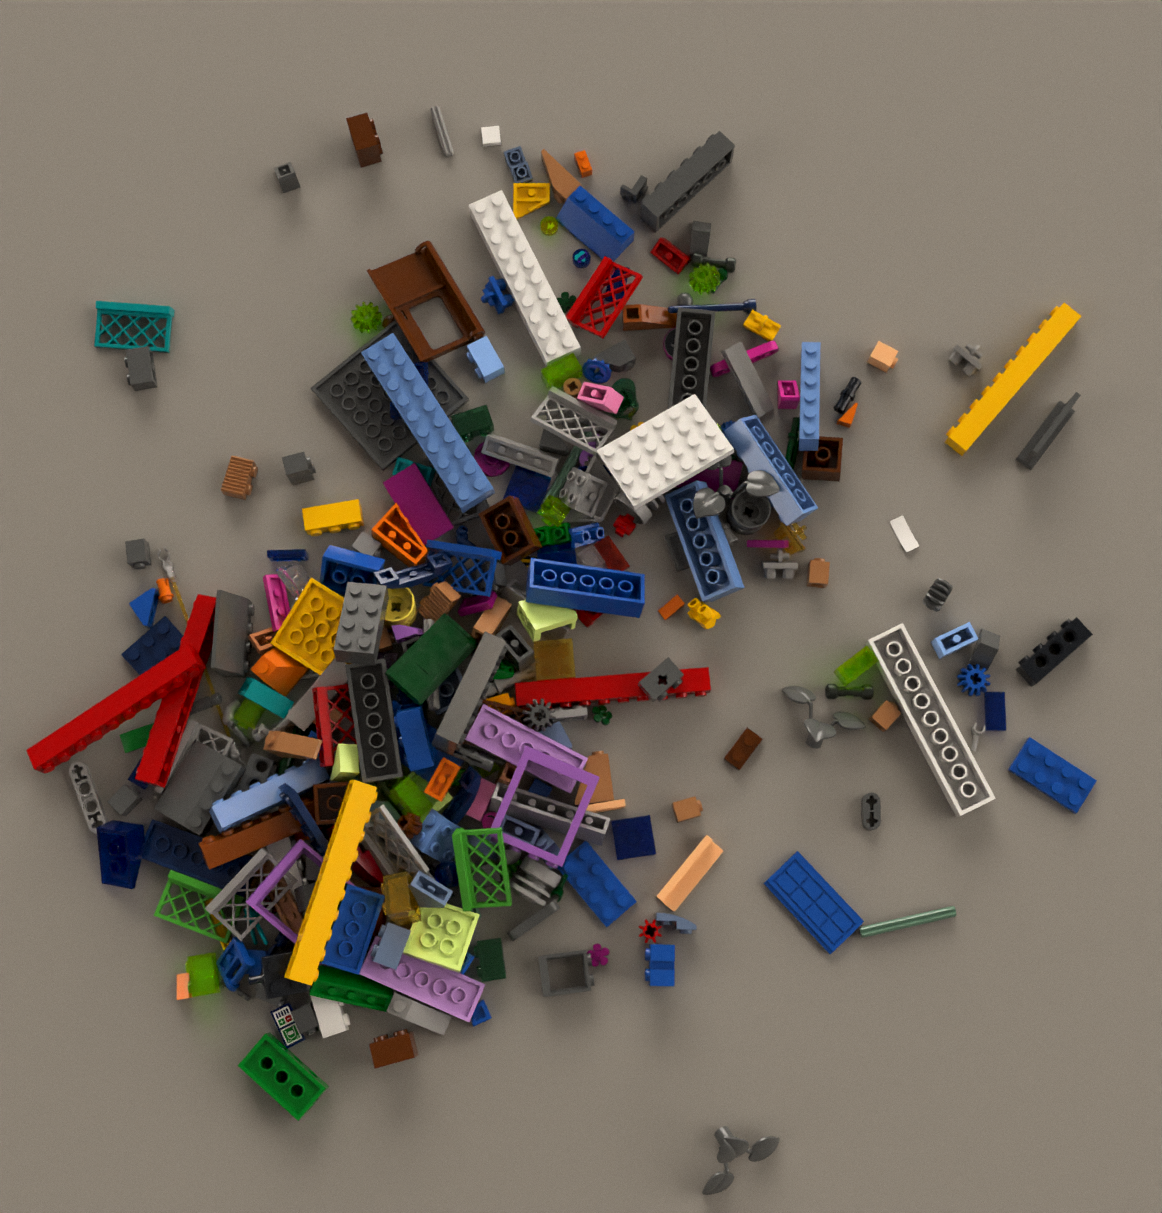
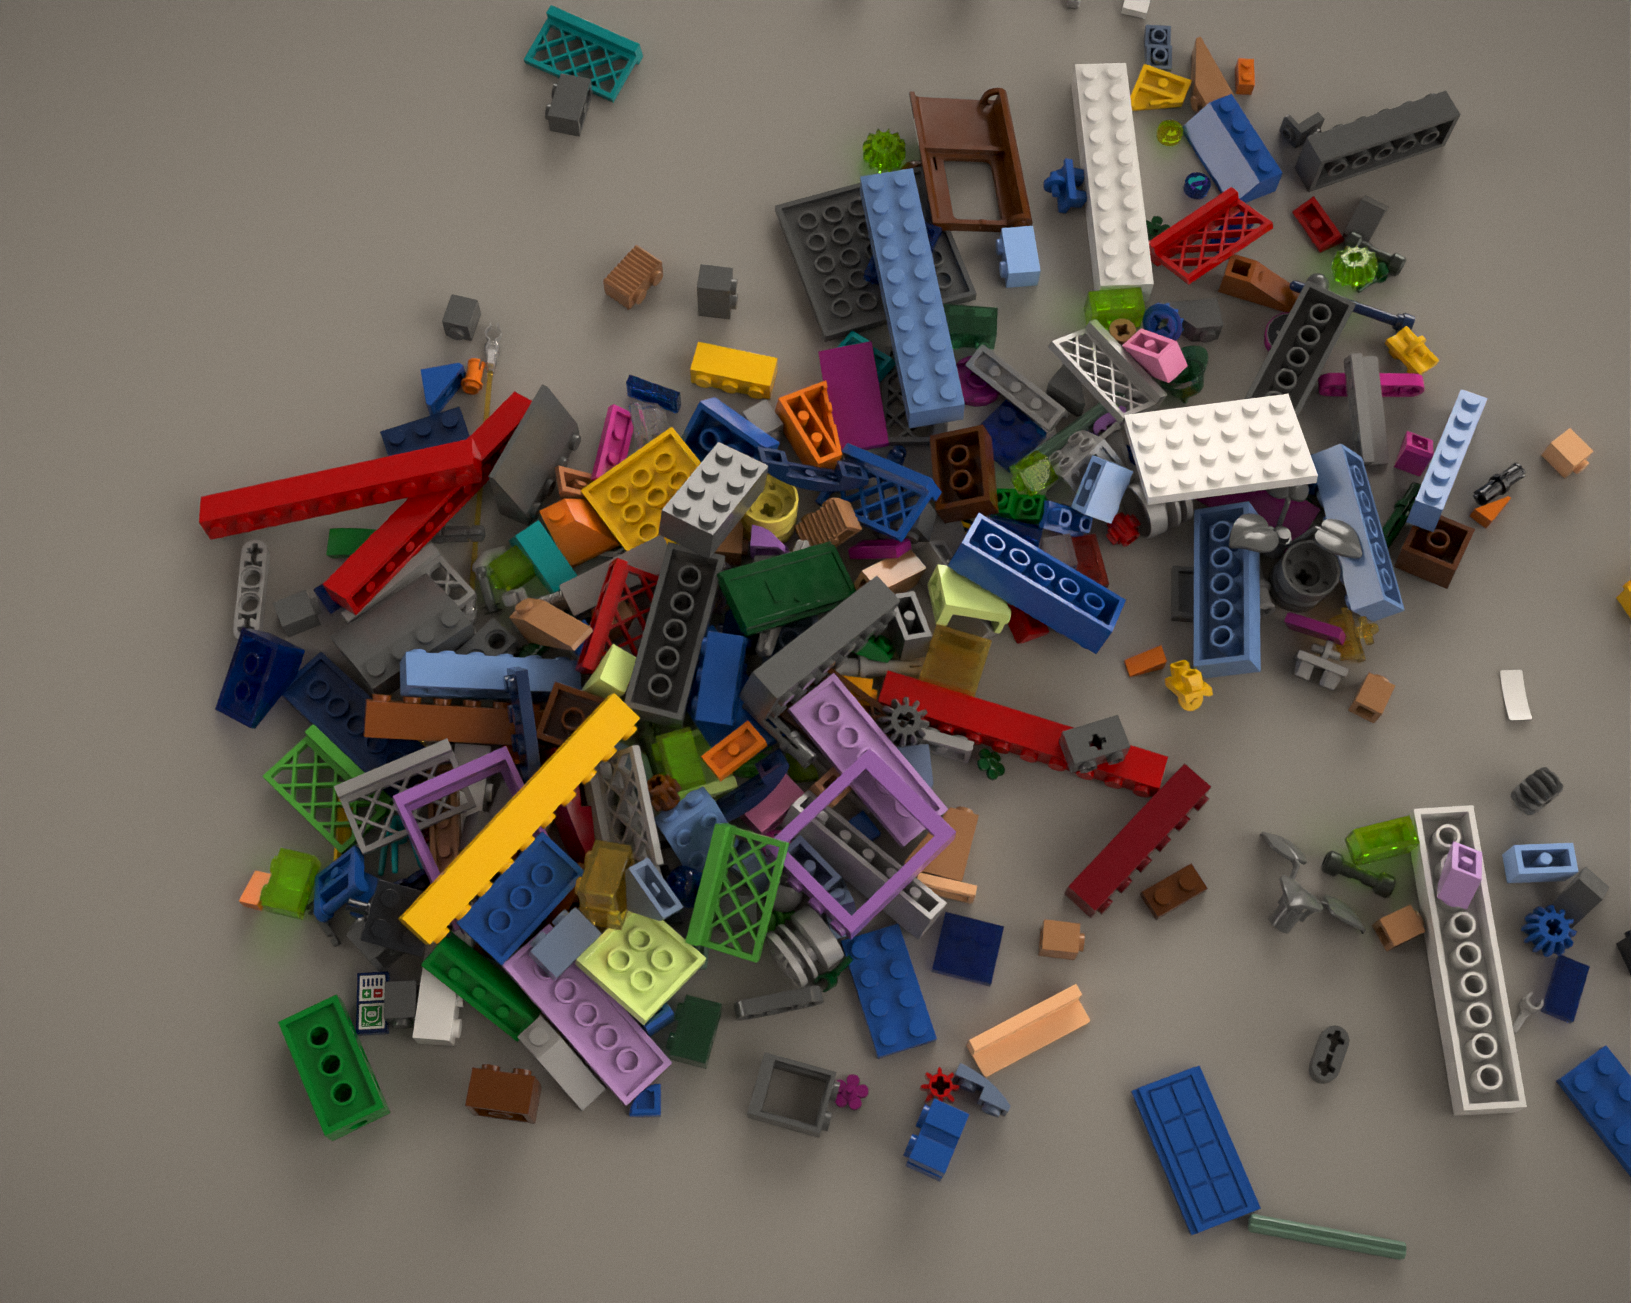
camera: 20 degrees right, 10 degrees down
(601, 507) = (1102, 489): none -> light blue brick
(710, 726) = (1137, 841): none -> dark red brick
(909, 673) = (1460, 876): none -> lavender slope

